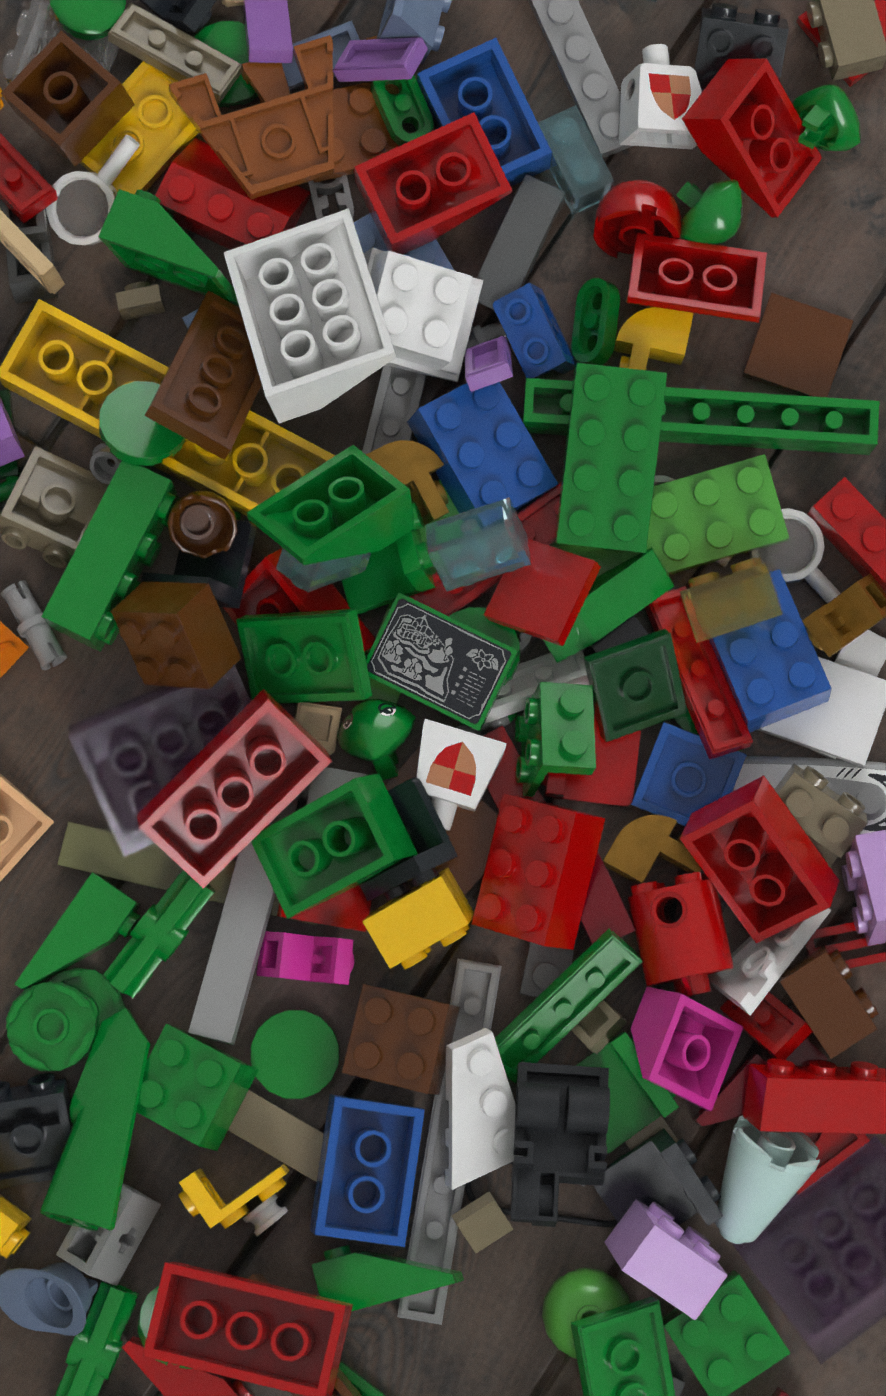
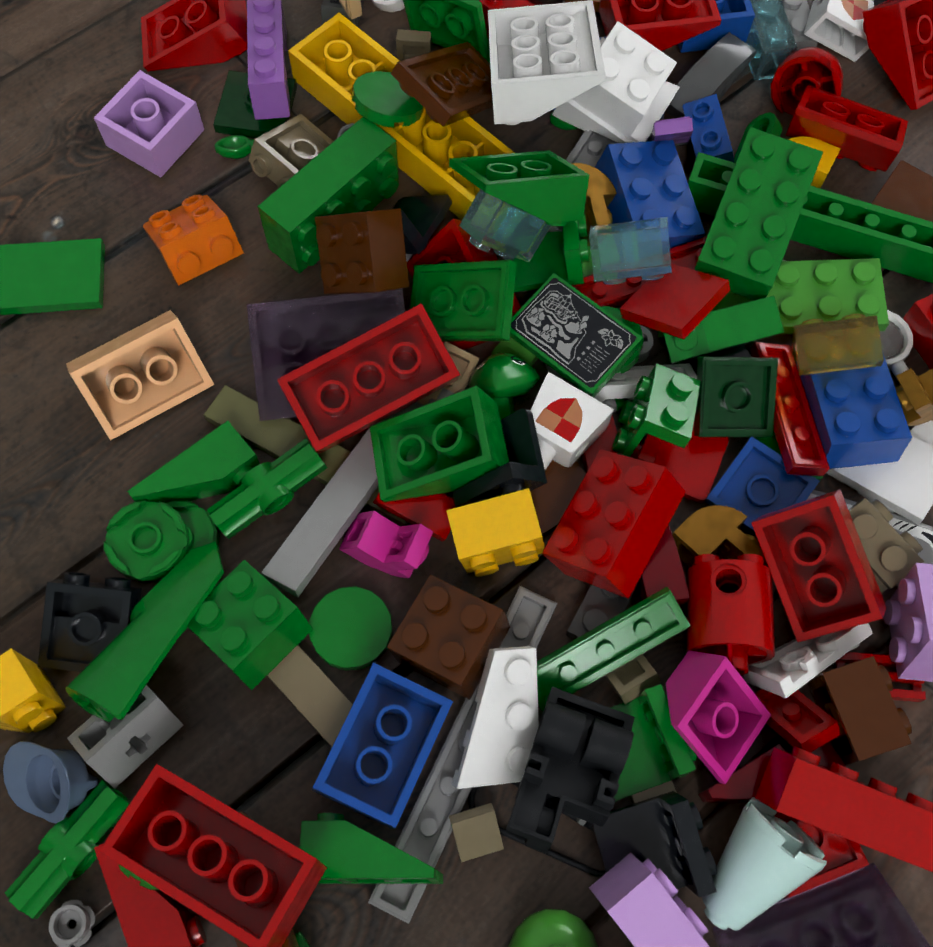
camera: 15 degrees right, 15 degrees down
(33, 626) = (253, 237): light grey pin -> none
(202, 524) = (410, 183): reddish brown hair -> none
(202, 1198) = (245, 745): yellow bracket -> none
(265, 1214) = (275, 763): white bush -> none
(713, 213) = (871, 85): green piece -> none

